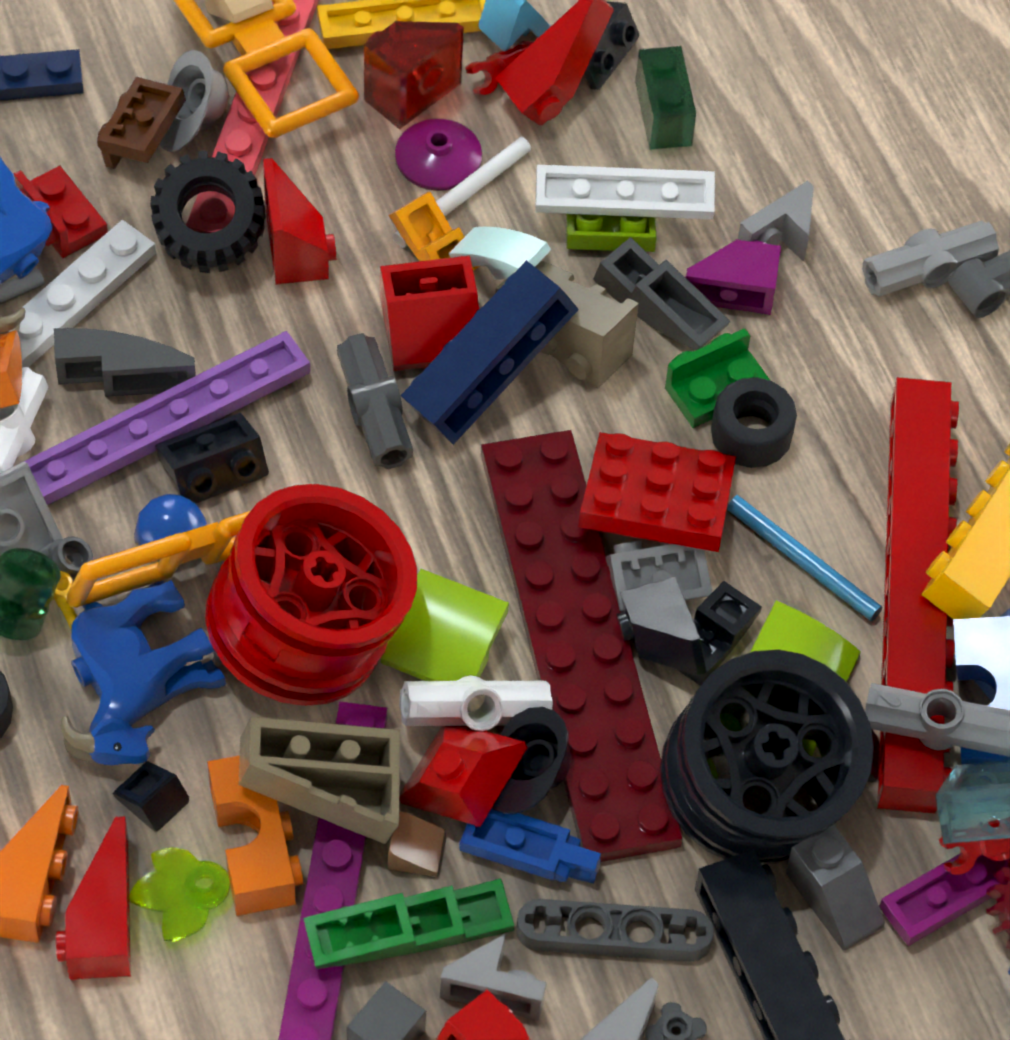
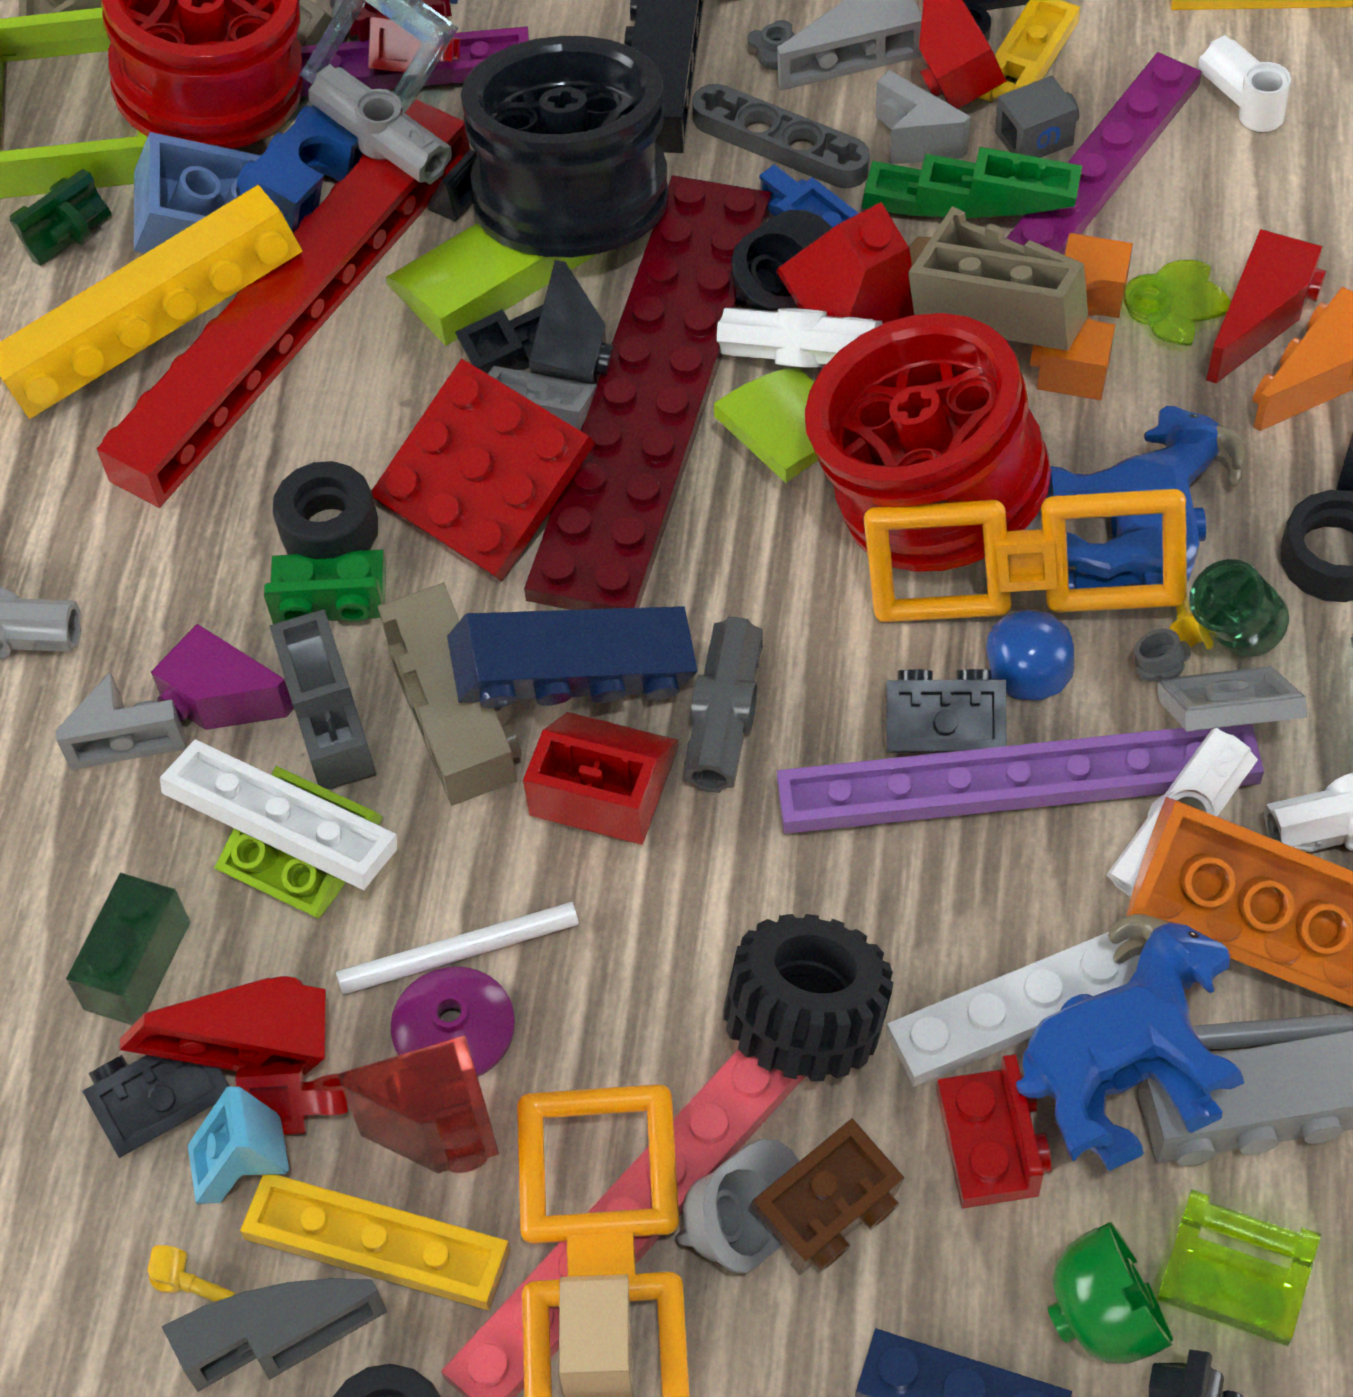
camera: 145 degrees left, 0 degrees up
(120, 361) = (1003, 867): dark grey slope -> none
(152, 795) = (1171, 390): black slope -> none
(295, 230) = (704, 937): red slope -> none
(426, 229) = (535, 882): light orange slope -> none
(500, 249) = (478, 794): light aqua slope -> none
(804, 558) = (371, 374): dark azure bar -> none

